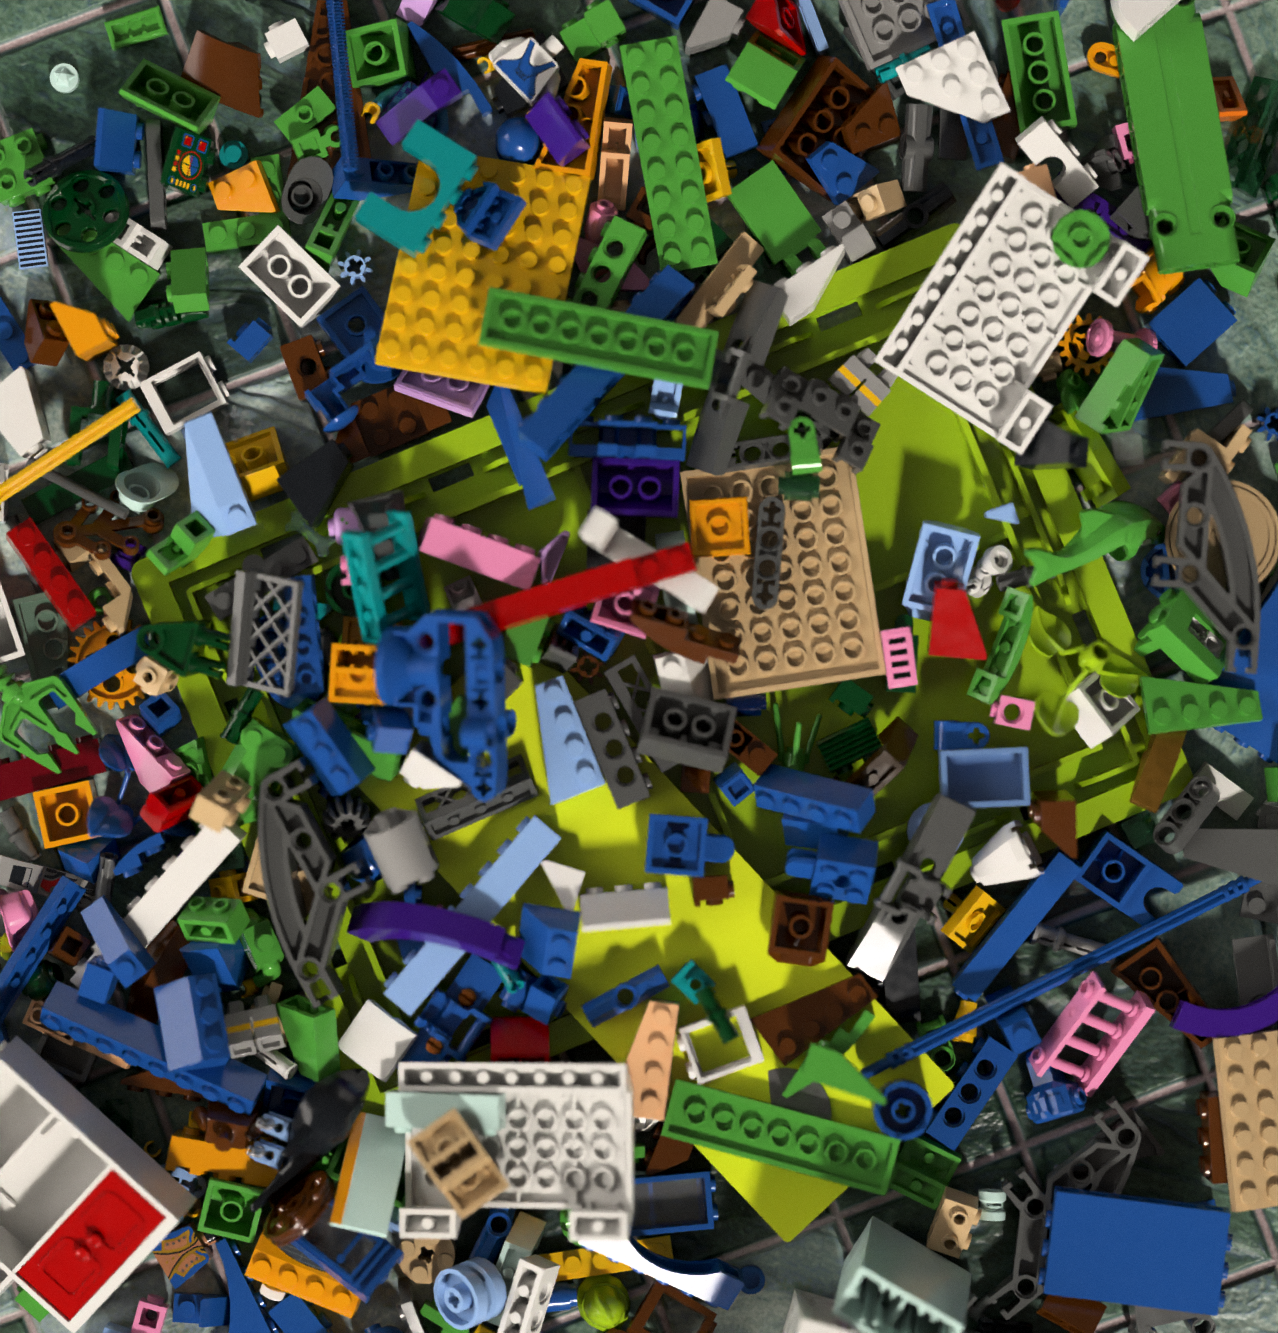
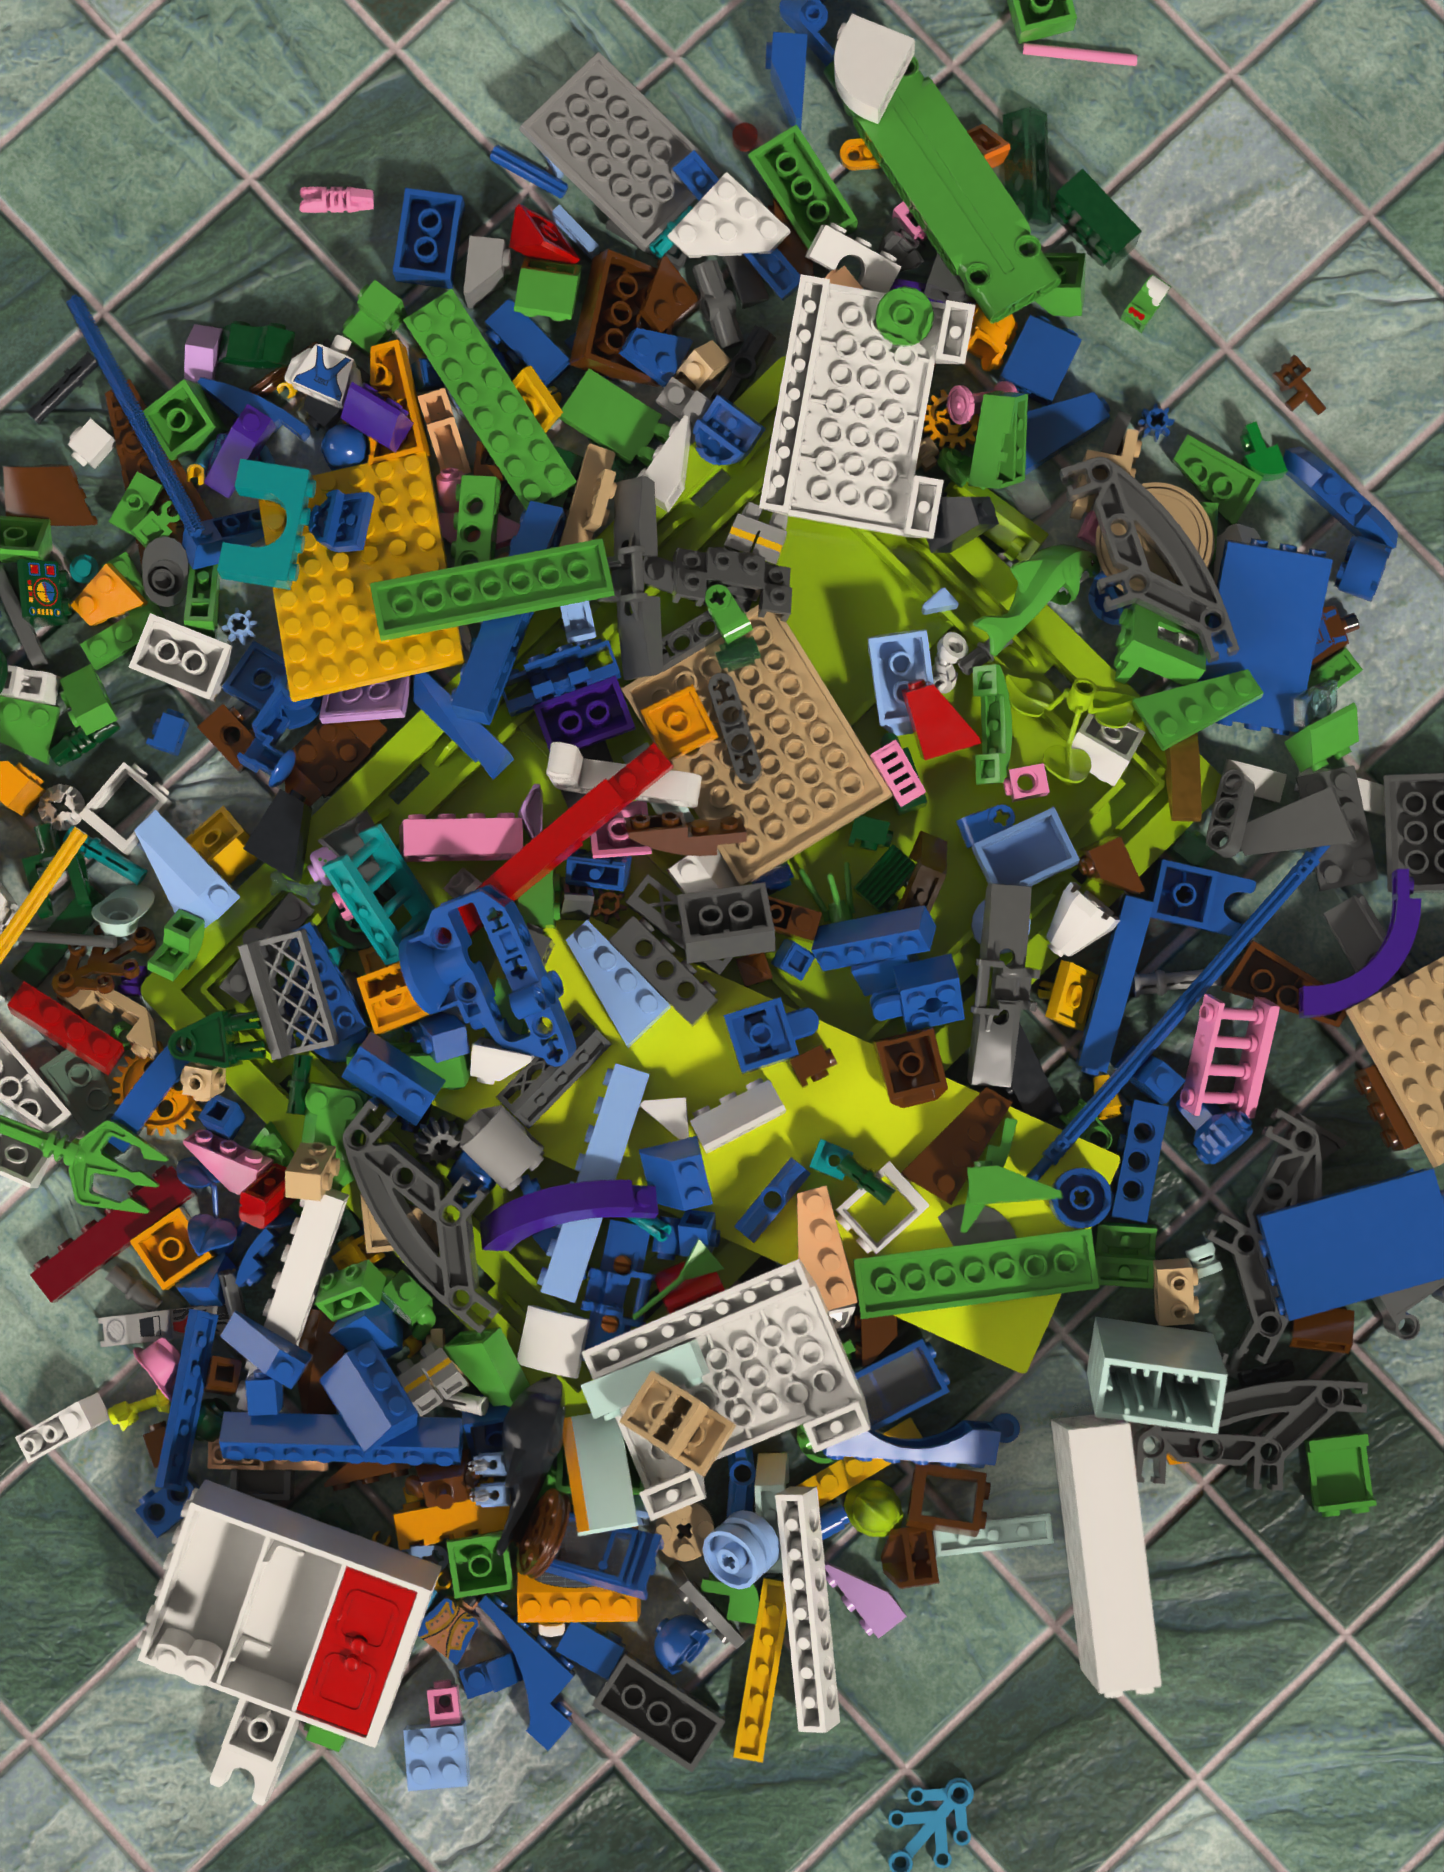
camera: 15 degrees left, 5 degrees down
(535, 1026) = (699, 1263): none -> bright green piece
(873, 275) = (726, 433): none -> blue slope

